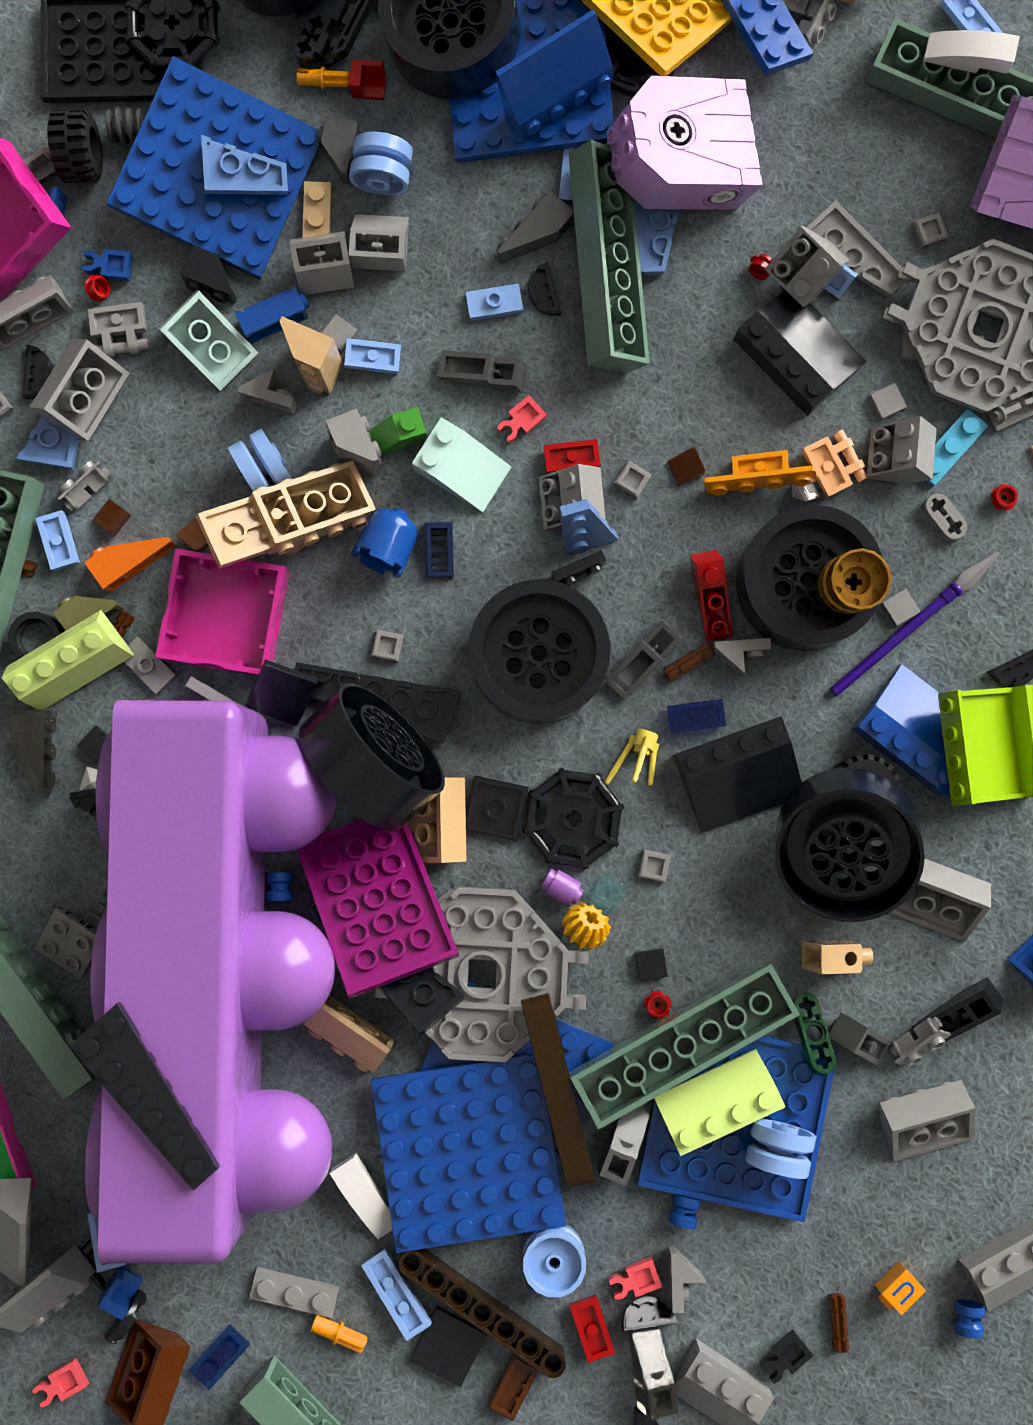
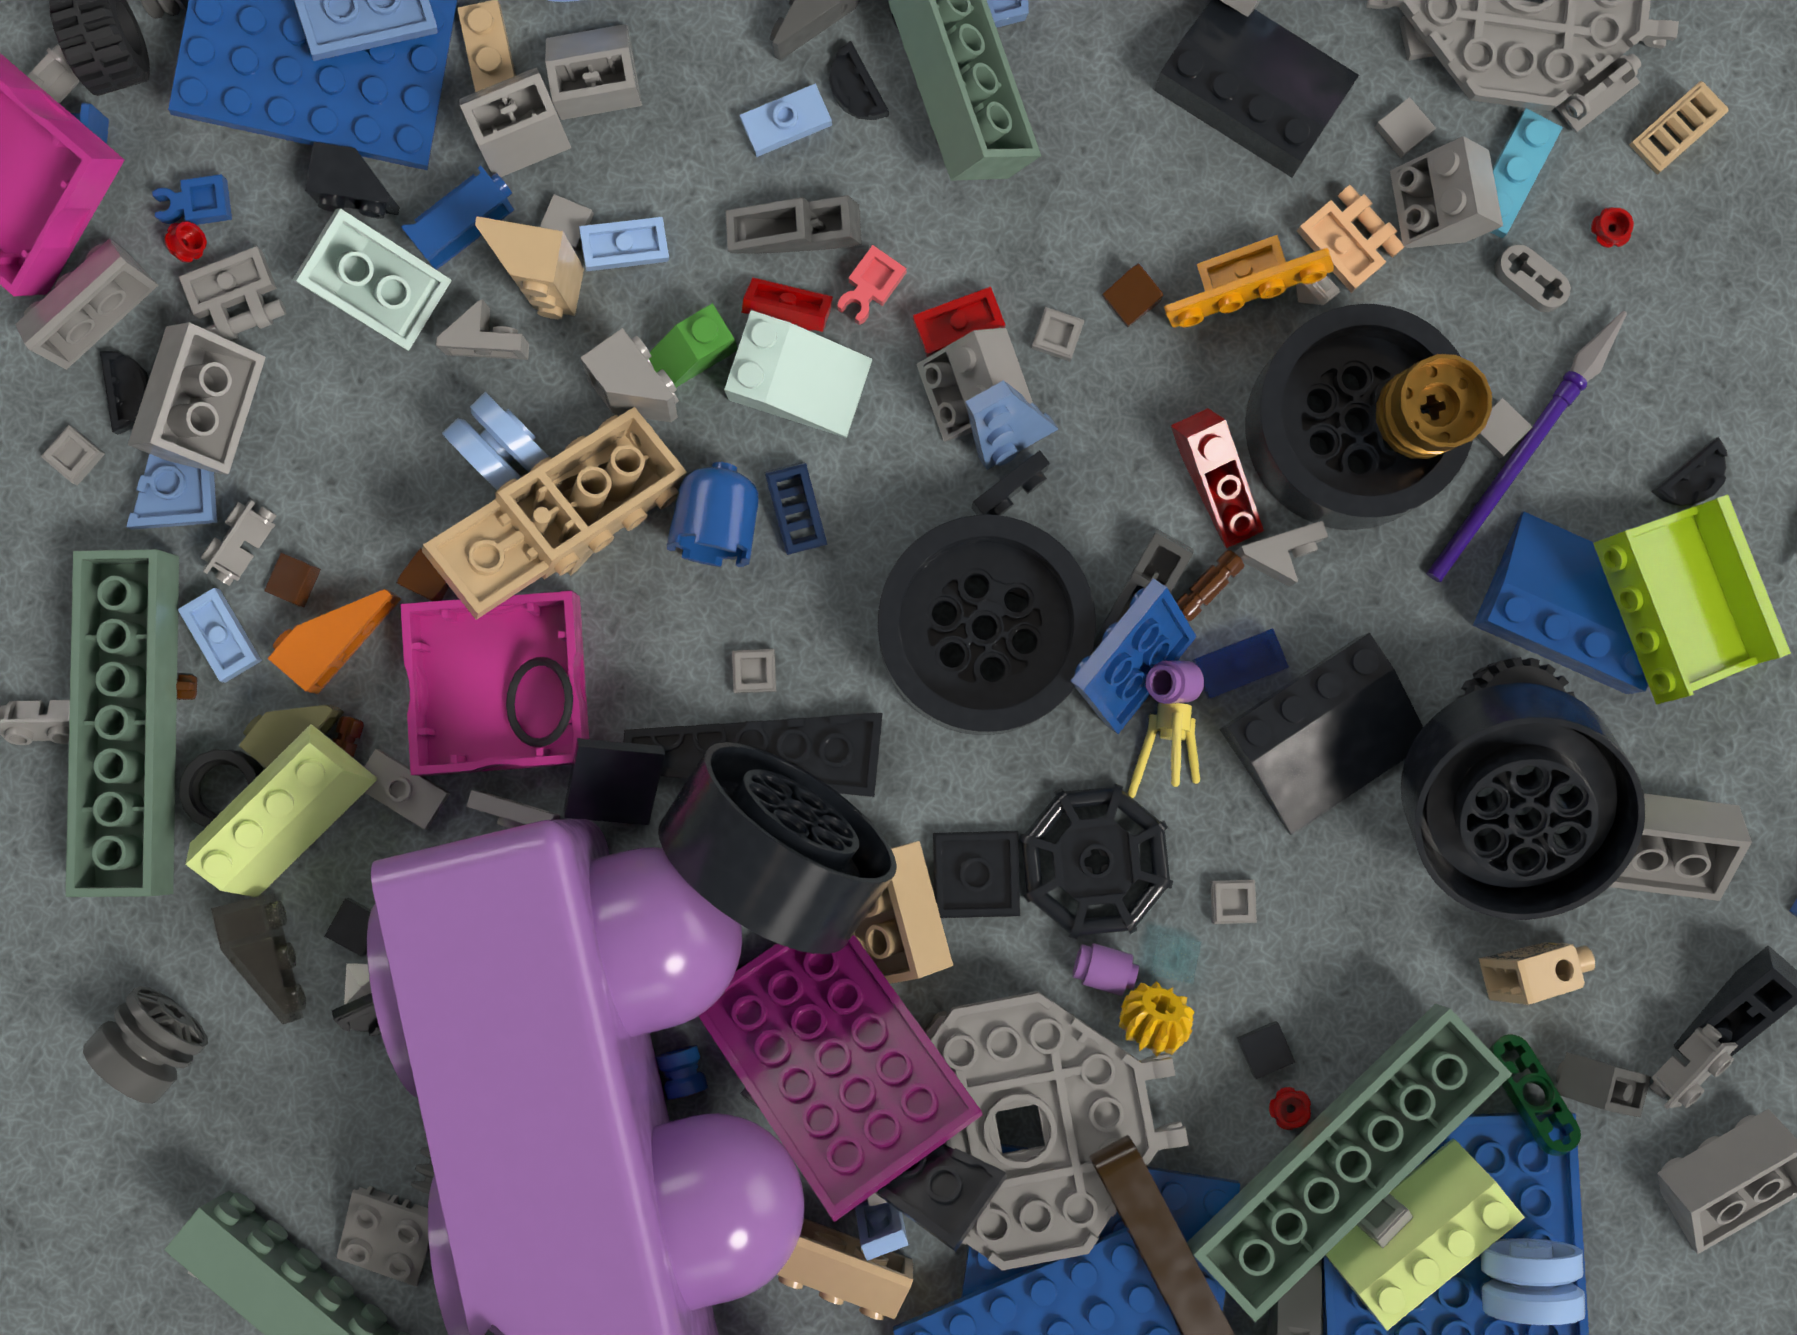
camera: 15 degrees left, 0 degrees up
(264, 637) = (568, 704): none -> black tyre
(378, 1013) = (880, 1229): none -> light blue plate
(467, 419) = (788, 303): none -> red plate
(628, 694) = (1117, 670): none -> blue plate
(651, 717) = (1175, 682): none -> medium lavender brick
(697, 1087) = (1385, 1220): none -> light grey tile

